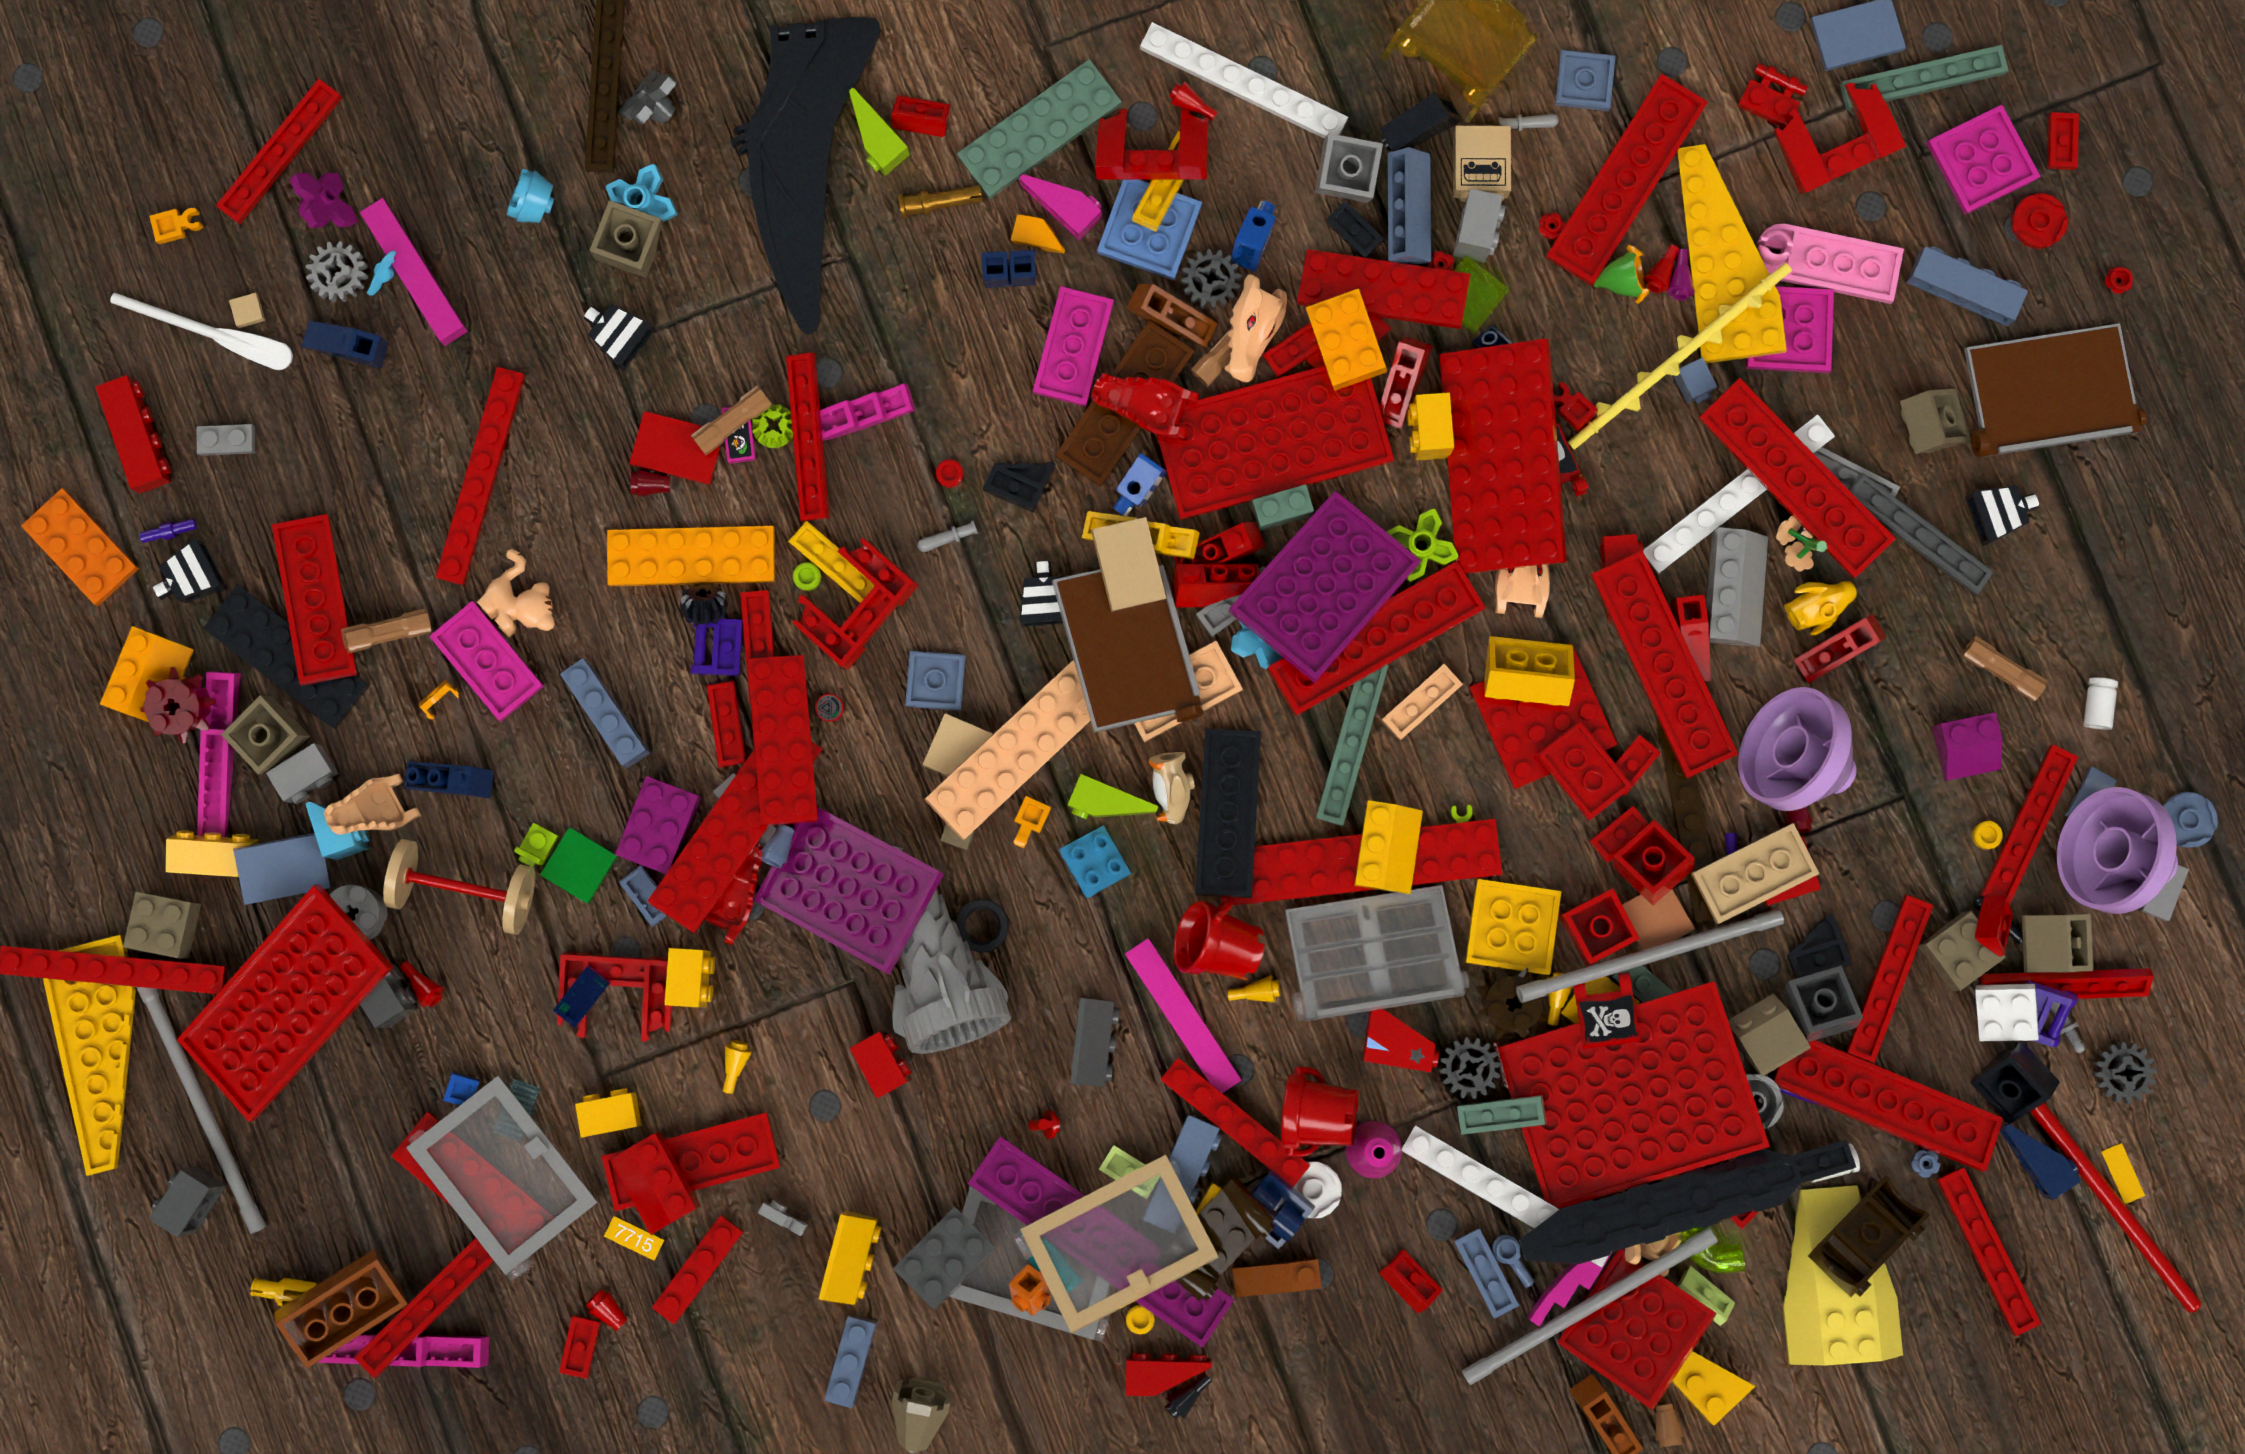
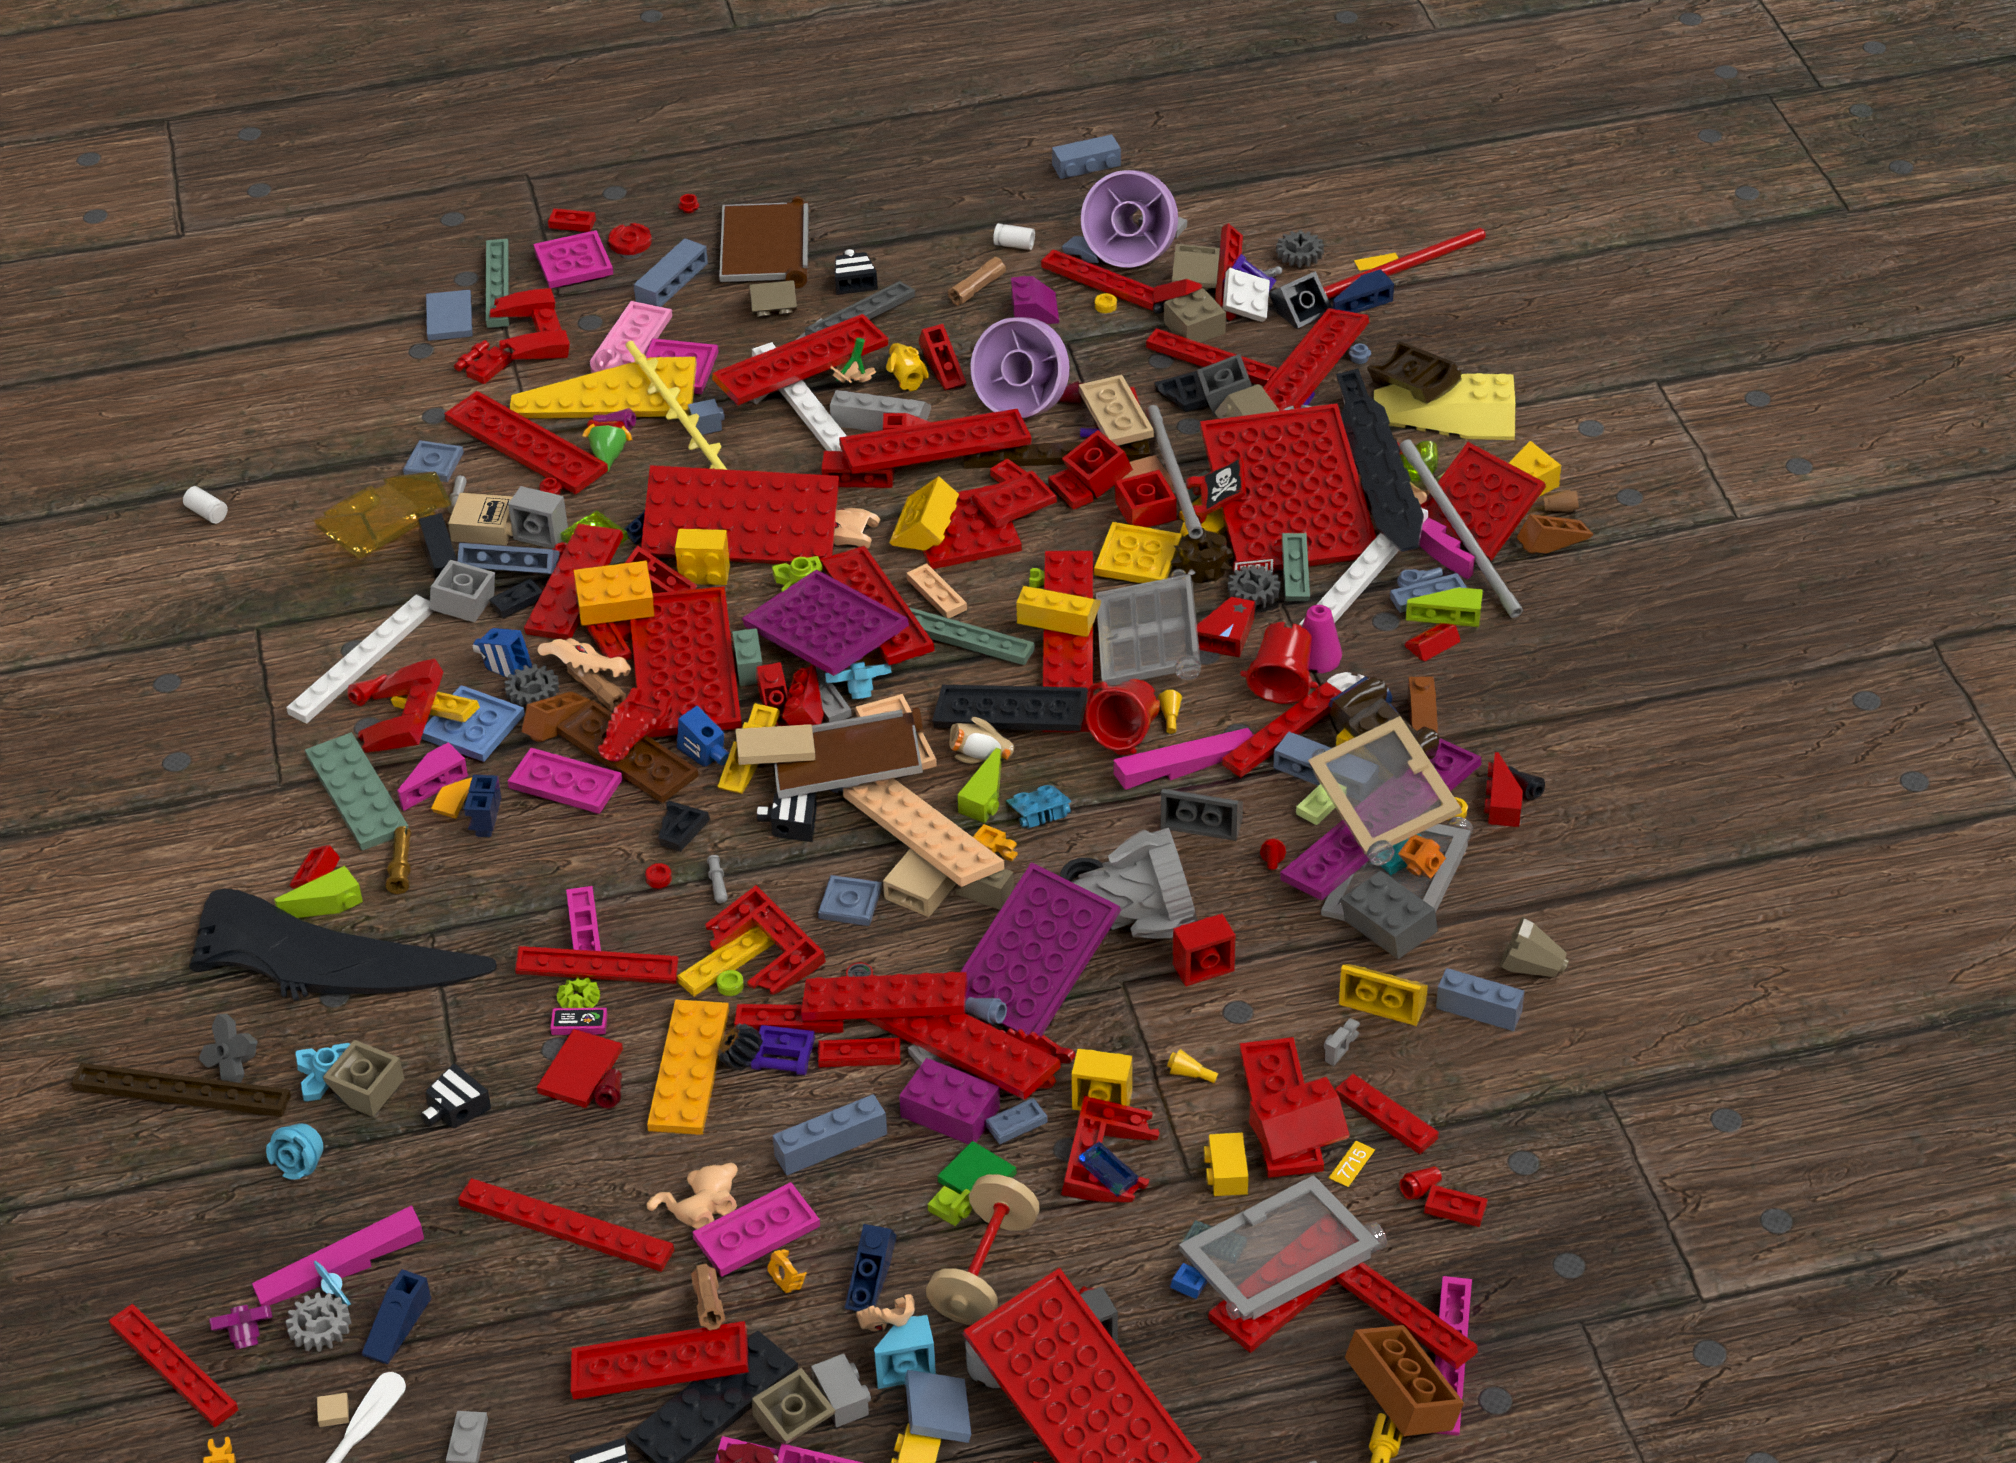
camera: 85 degrees left, 40 degrees down
(715, 432) = (575, 1026): medium nougat axle -> none
(1462, 1308) = (1450, 606): none -> lime slope
(1988, 1251) = (1431, 326): red plate -> none

